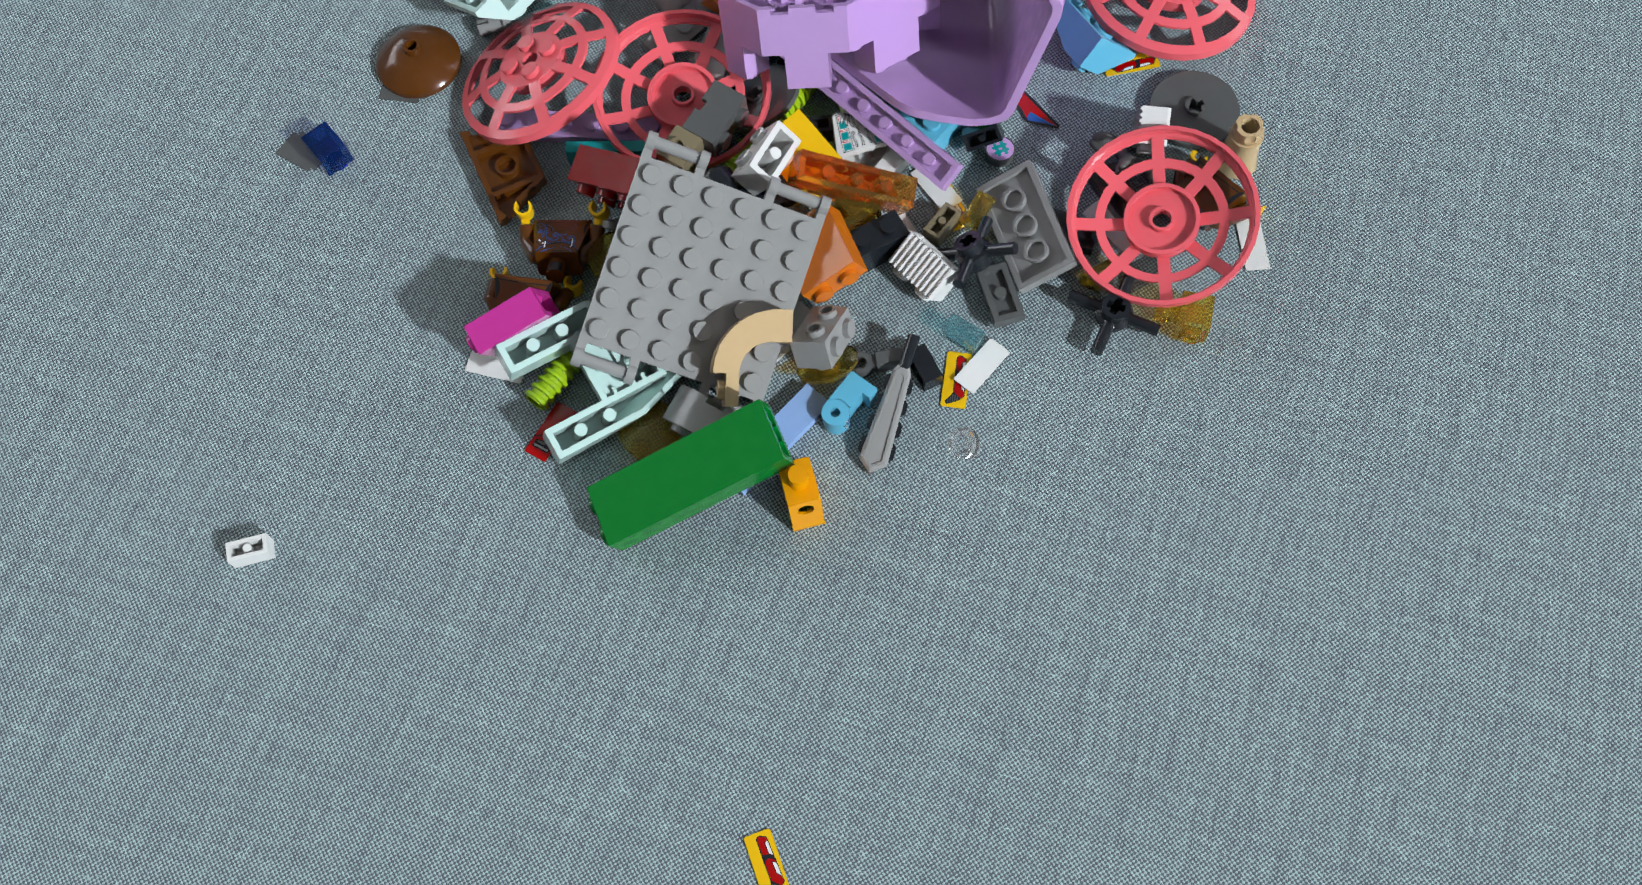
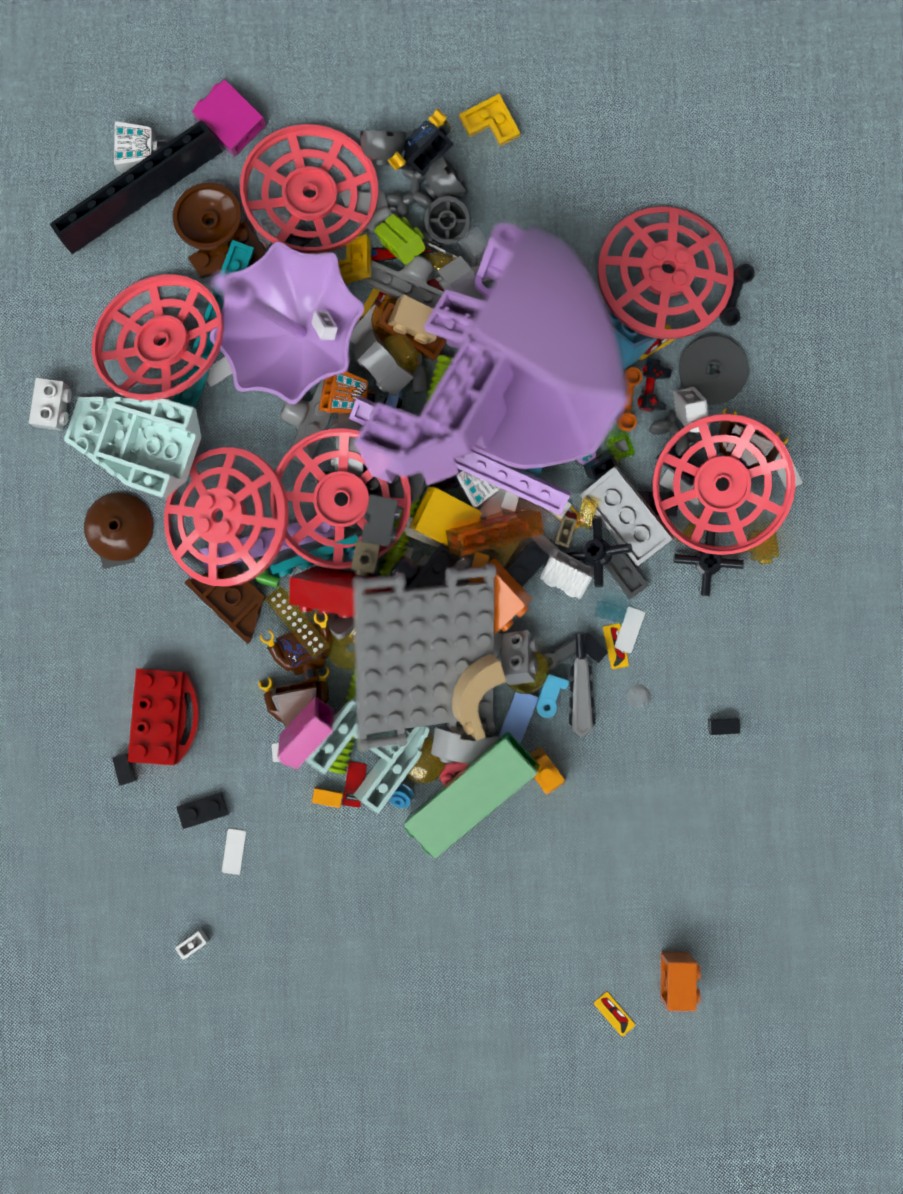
camera: 25 degrees left, 20 degrees up
(282, 314) = (124, 769): none -> black piece
(297, 153) = (69, 633): dark grey sticker -> none
(327, 148) = (91, 630): clear blue brick -> none
(349, 395) = (202, 810): none -> black plate
(354, 266) = (161, 716): none -> red piece
(362, 459) = (233, 851): none -> white sticker
(509, 431) = (327, 797): none -> light orange piece
(555, 156) = (268, 579): none -> bright green arm
(569, 213) = (297, 623): none -> clear yellow sticker
(601, 458) = (402, 796): none -> dark azure wheel
(767, 157) = (432, 545): white brick -> none
(876, 836) = (679, 981): none -> orange brick
(1005, 161) = (600, 465): none -> black piece
(1046, 155) = (620, 446): none -> clear neon green slope
(1066, 522) = (724, 726): none -> black piece
(1086, 90) = (627, 420): none -> orange bar
(1118, 87) = (652, 371): none -> black piece
(1245, 140) = (752, 404): tan plant -> none
(1262, 23) = (742, 275): none -> black bar

